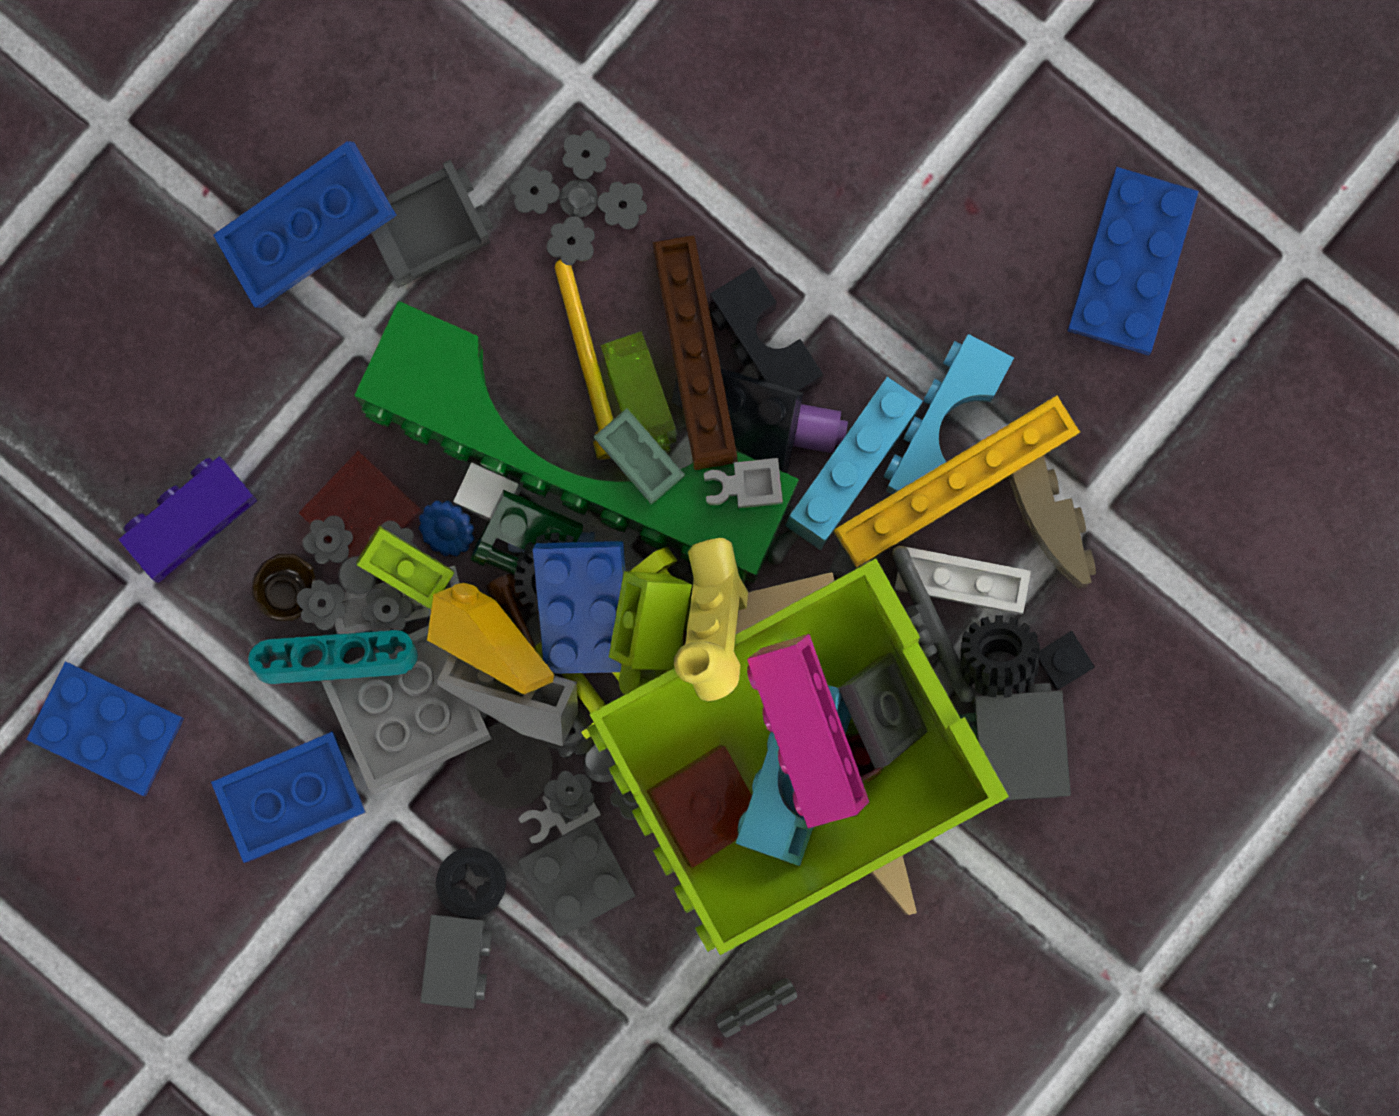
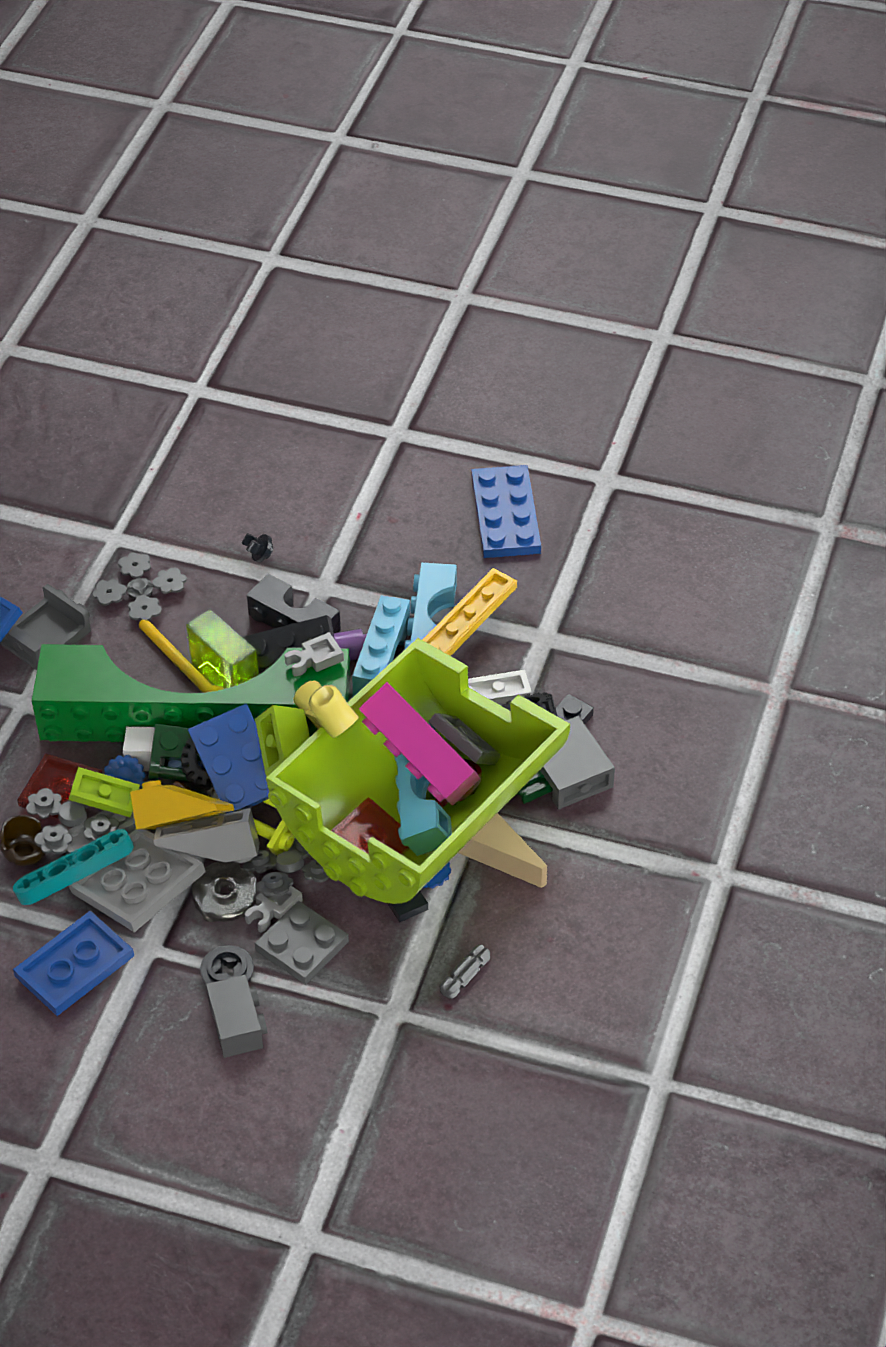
camera: 20 degrees left, 35 degrees down
(639, 456) = (237, 666): sand green plate -> none
(694, 353) = (250, 620): reddish brown tile -> none
(767, 195) = (259, 547): none -> black plate
(1053, 524) = (524, 643): dark tan slope -> none

